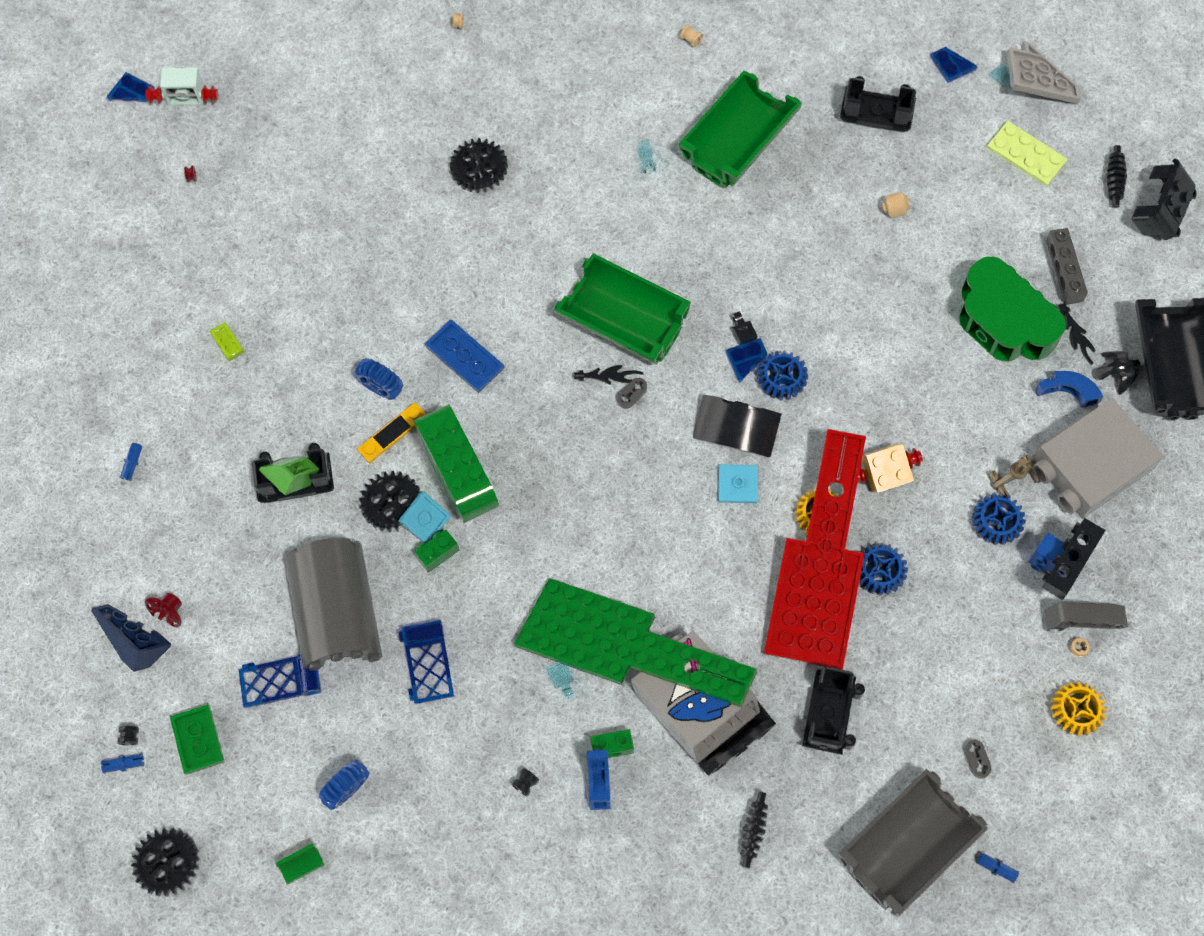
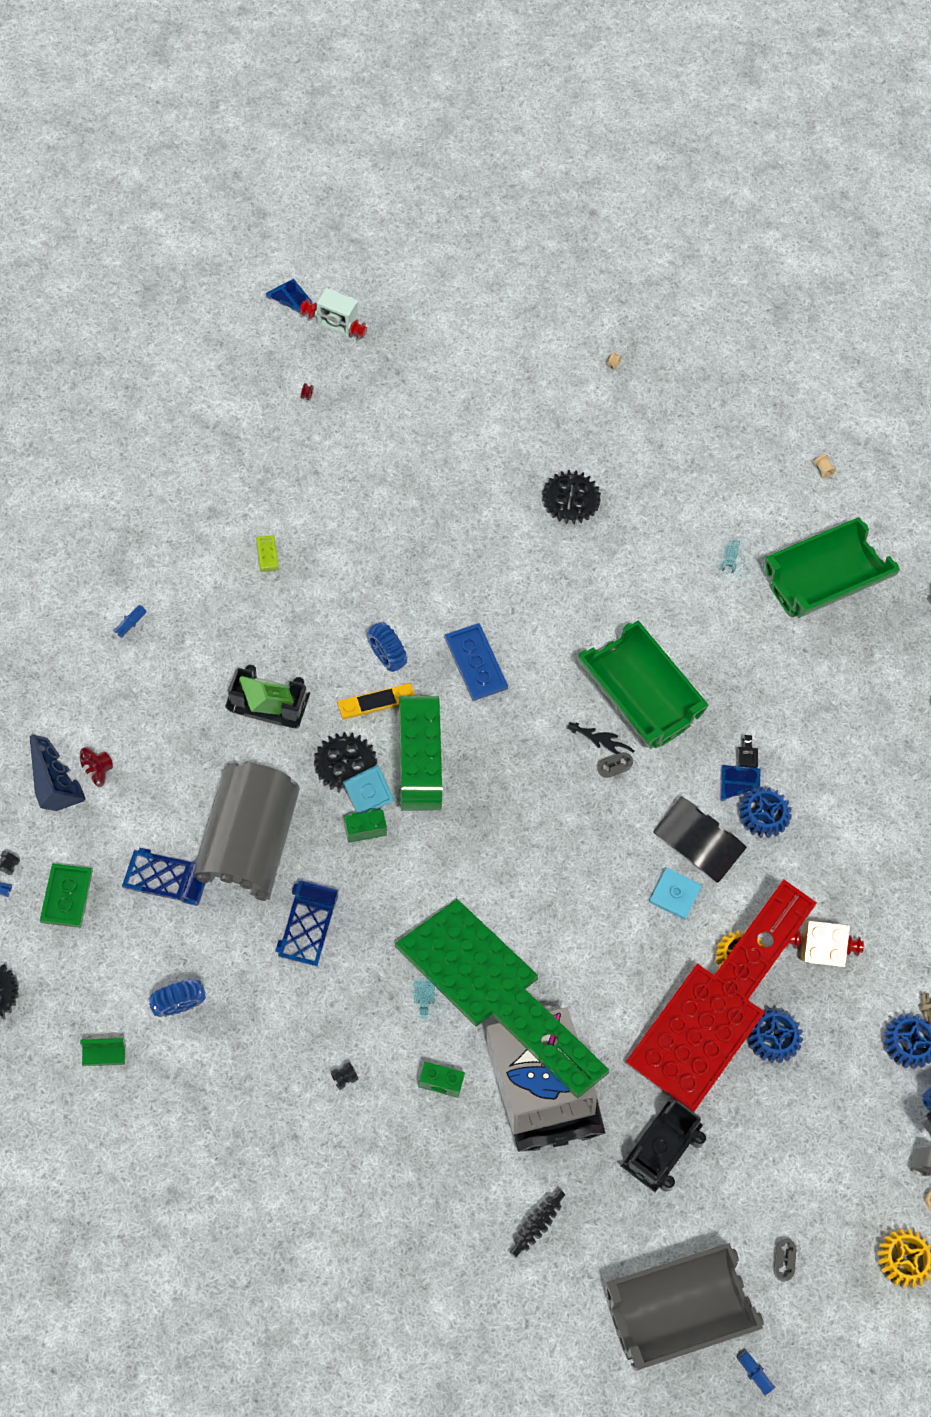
camera: 15 degrees right, 5 degrees down
(598, 779) = (413, 1105): blue arch -> none

